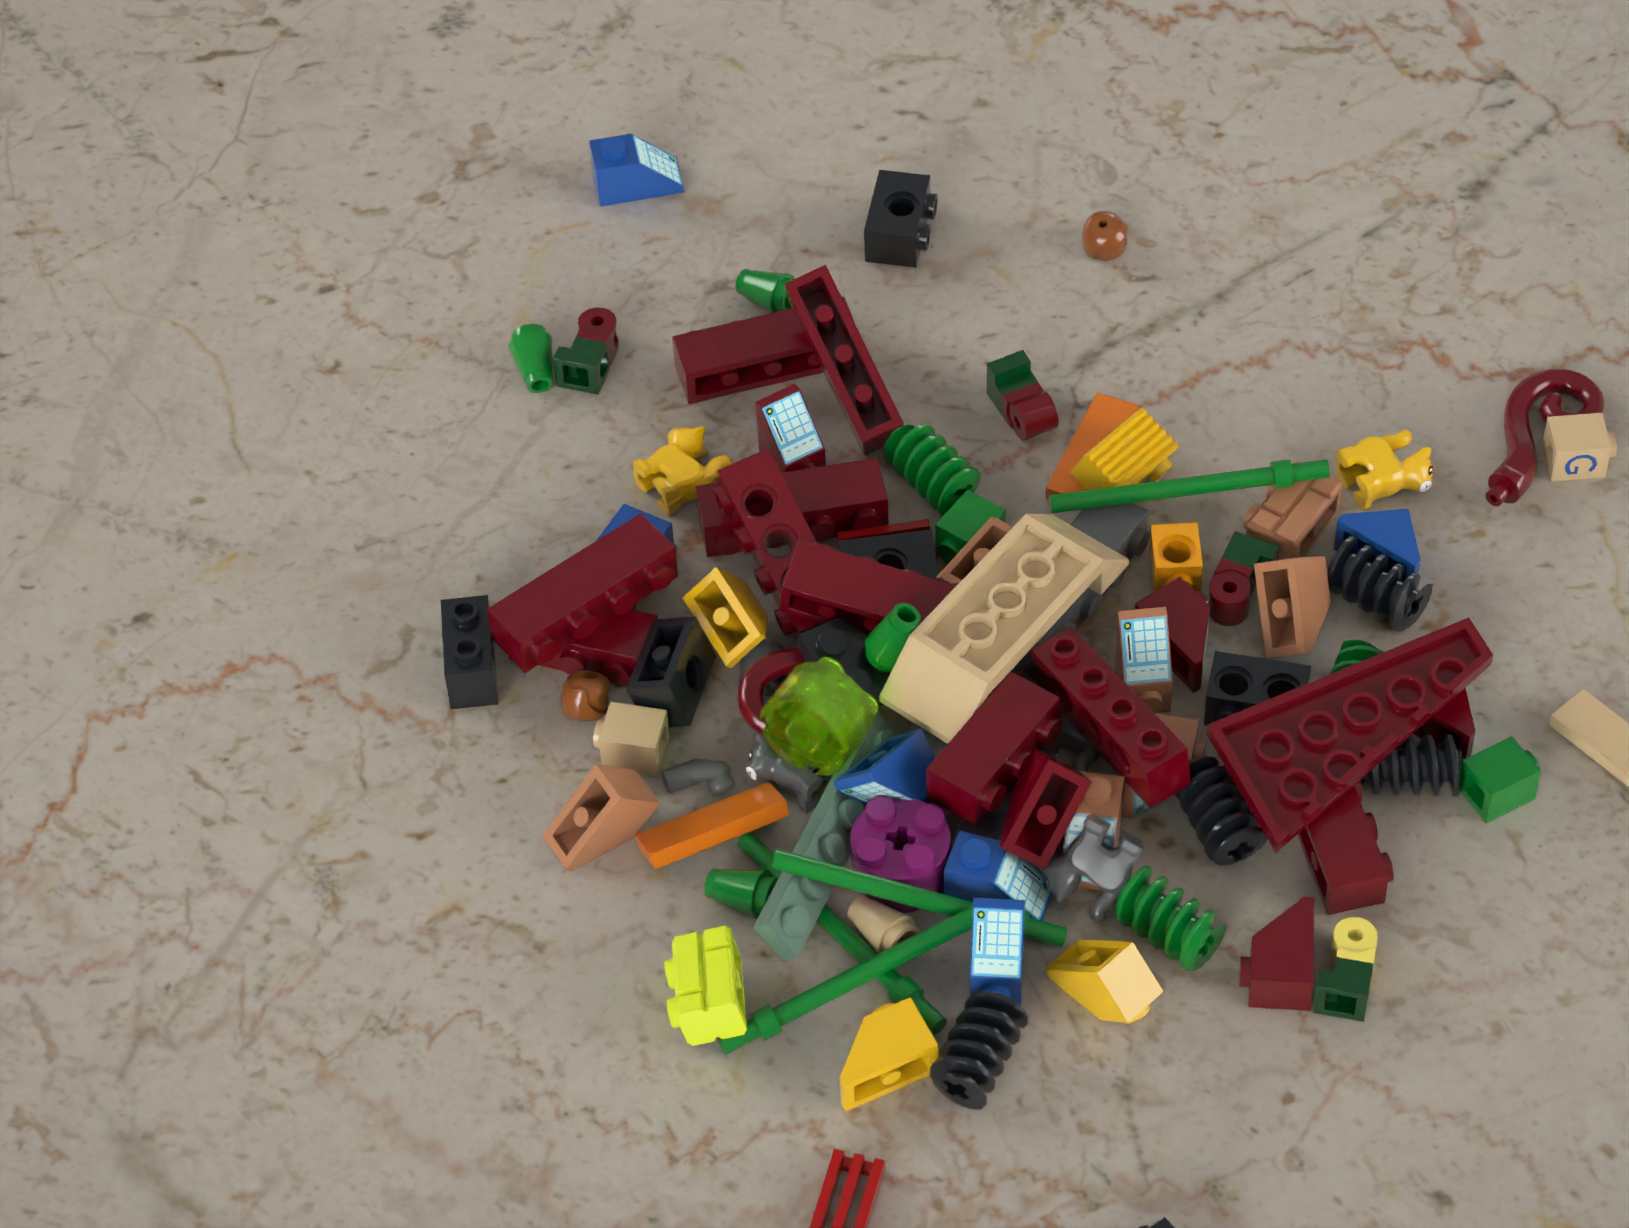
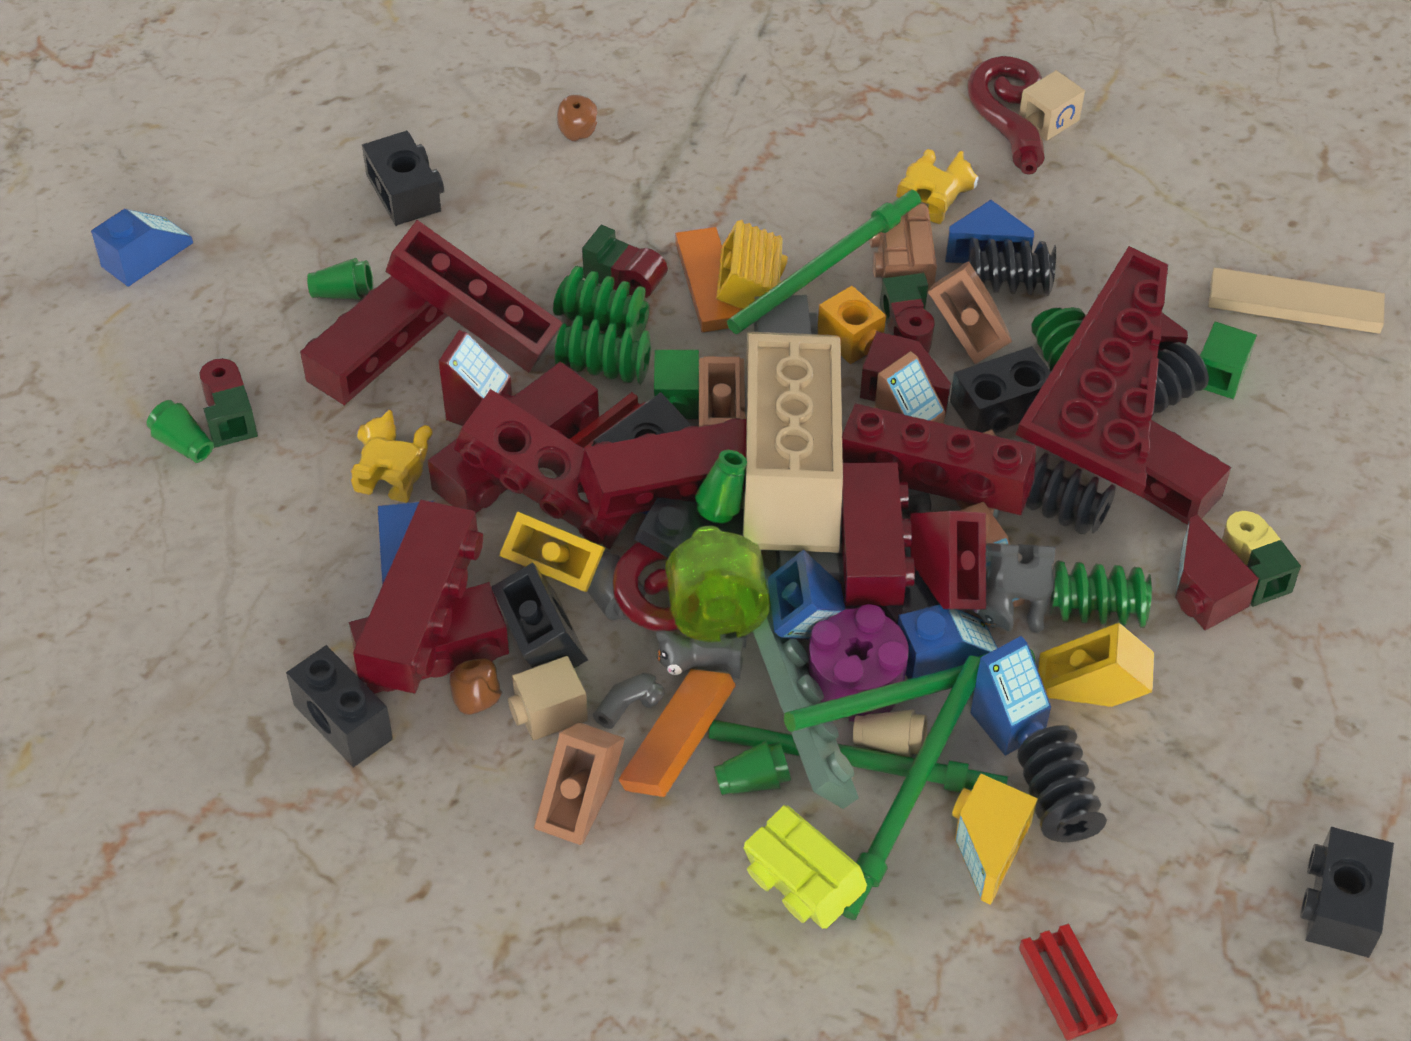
camera: 40 degrees left, 0 degrees up
(969, 424) = (602, 302): none -> green piece

